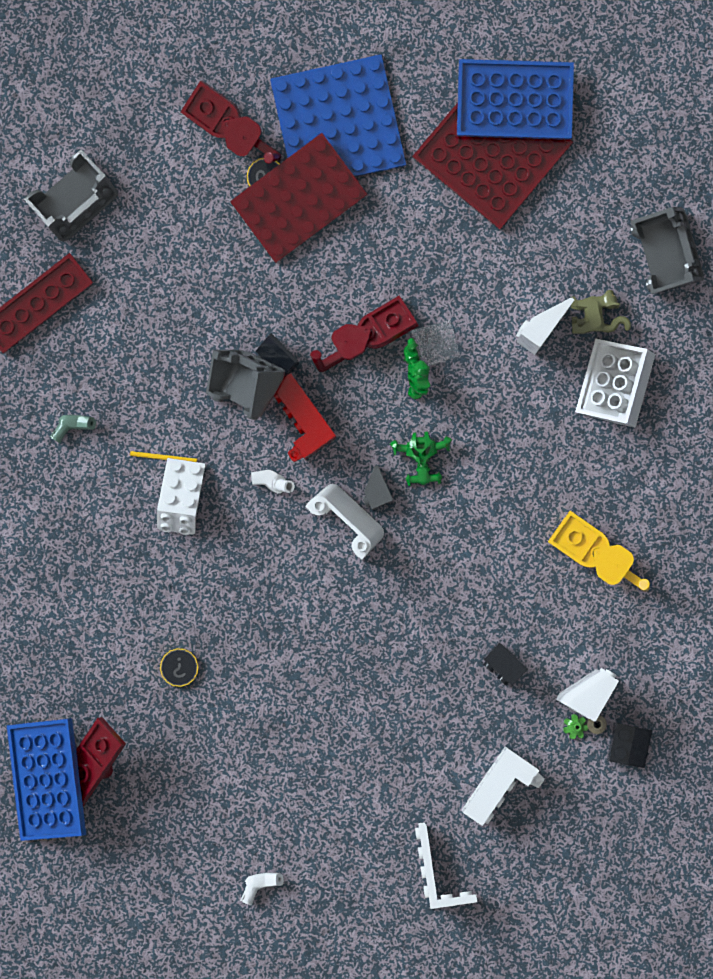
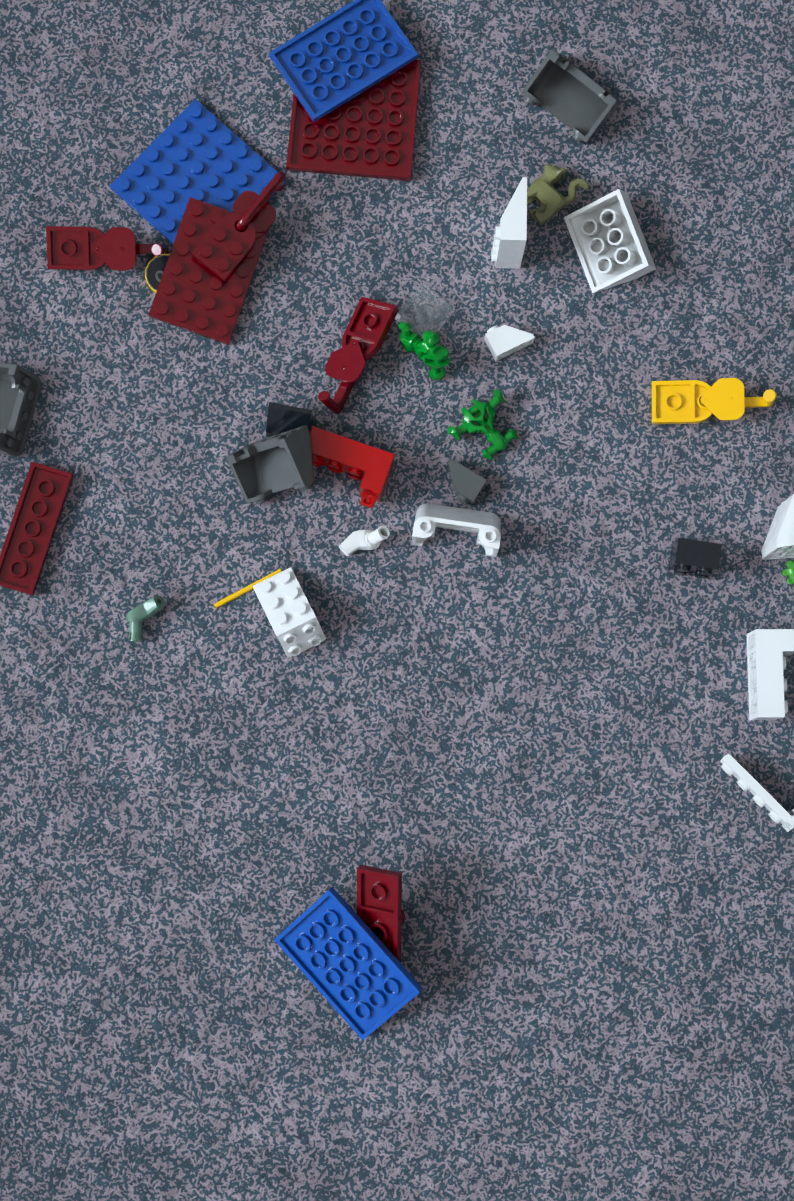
camera: 40 degrees left, 5 degrees down
(179, 667) = (398, 771): black tile -> none
(259, 881) = (613, 918): white arm -> none
(321, 188) = (236, 232): none -> dark red plate
(483, 404) = (506, 340): none -> white slope

